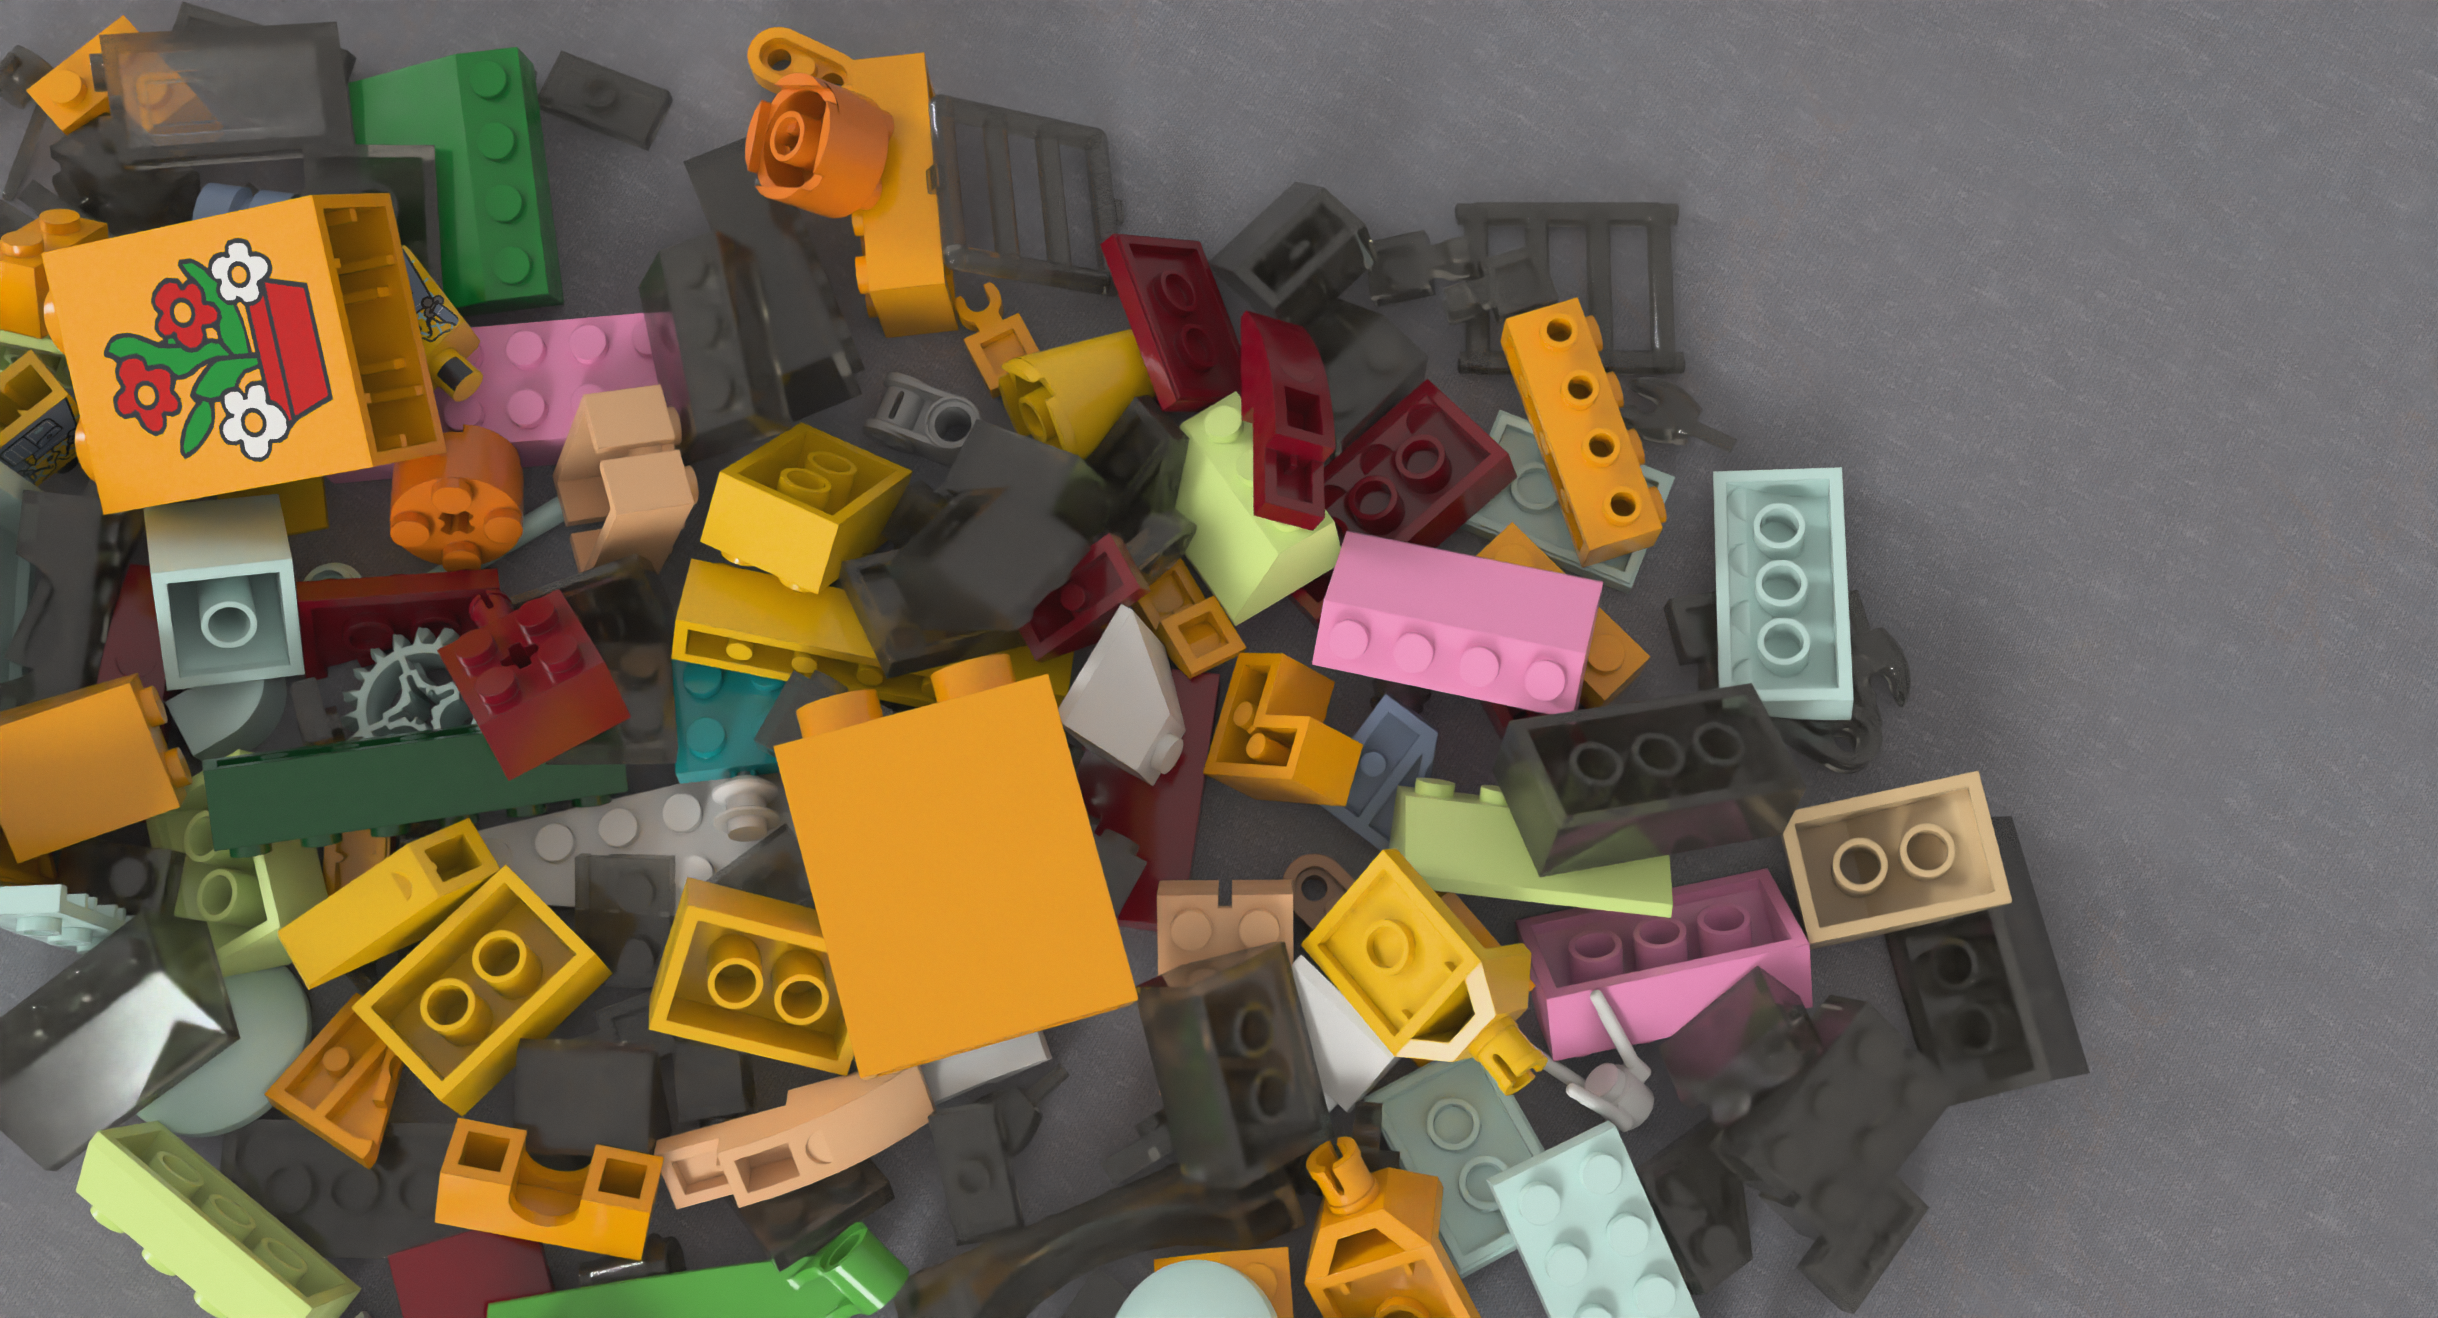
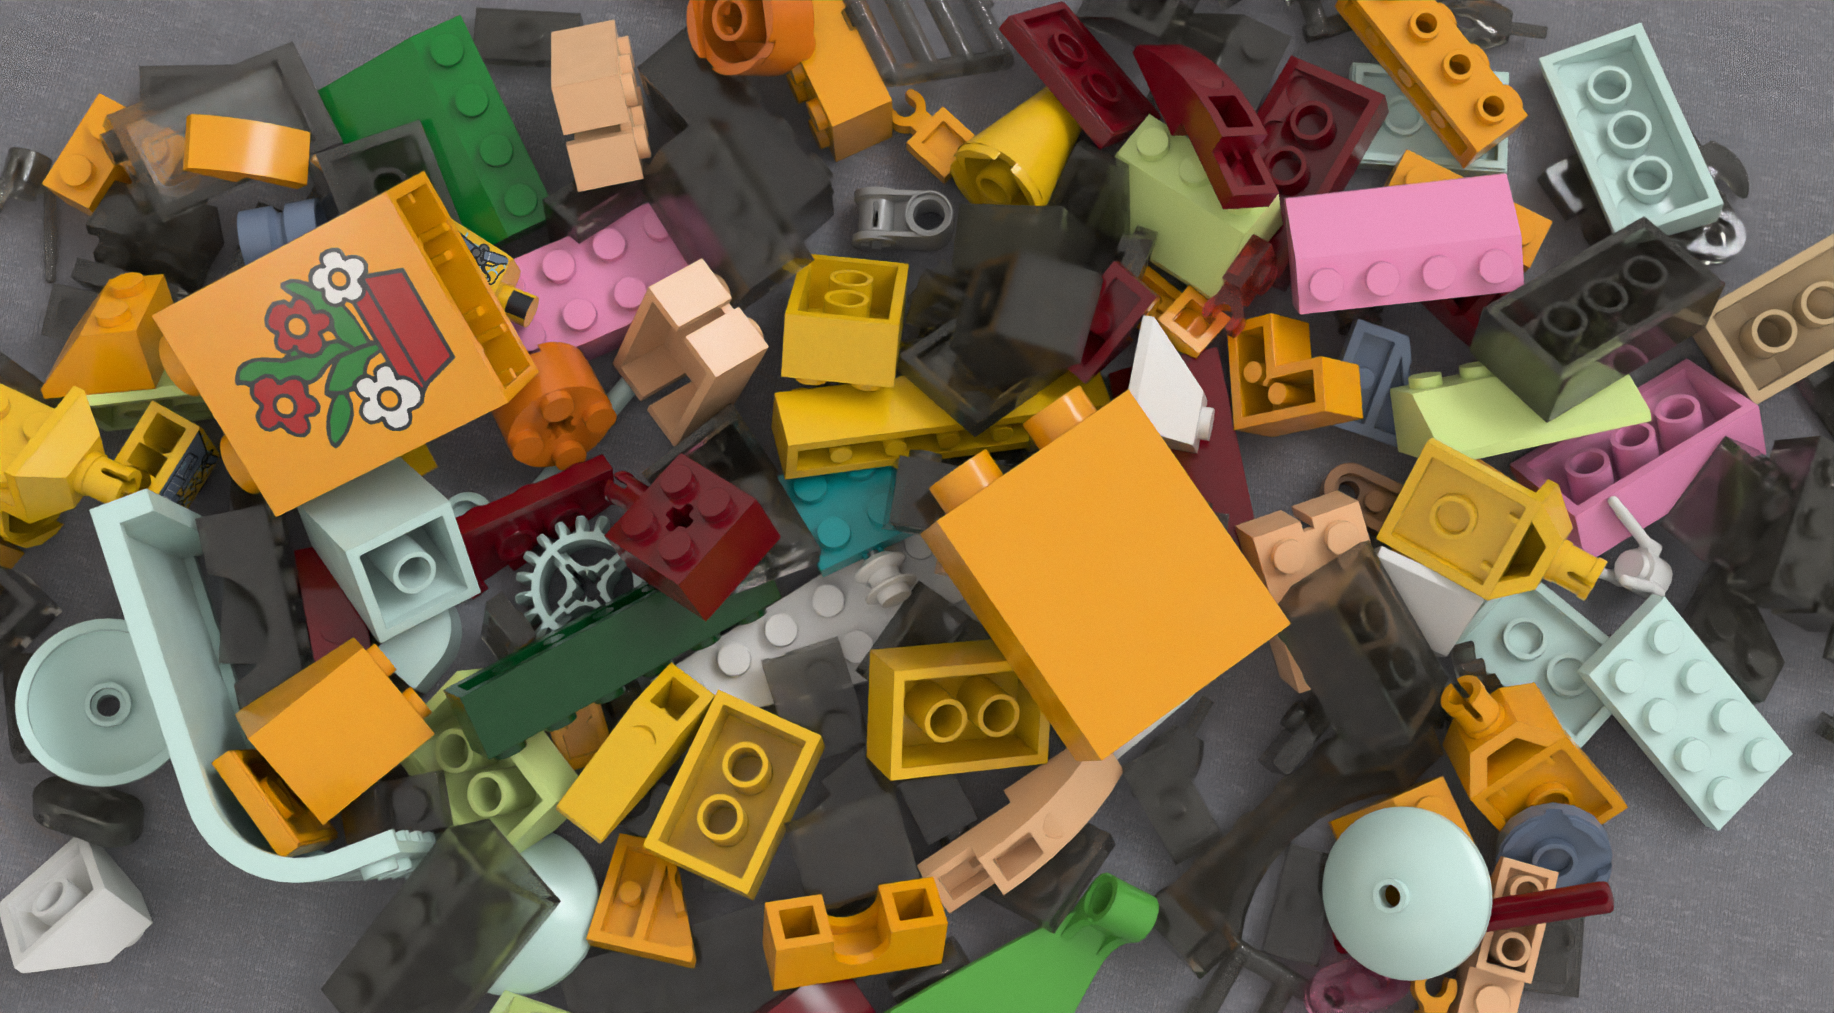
camera: 25 degrees left, 5 degrees up
(237, 119) = (246, 149): none -> light orange slope
(590, 289) = (591, 210): none -> clear smoke panel
(635, 166) = (599, 104): none -> light nougat piece
(1270, 608) = (1247, 276): none -> clear red plate

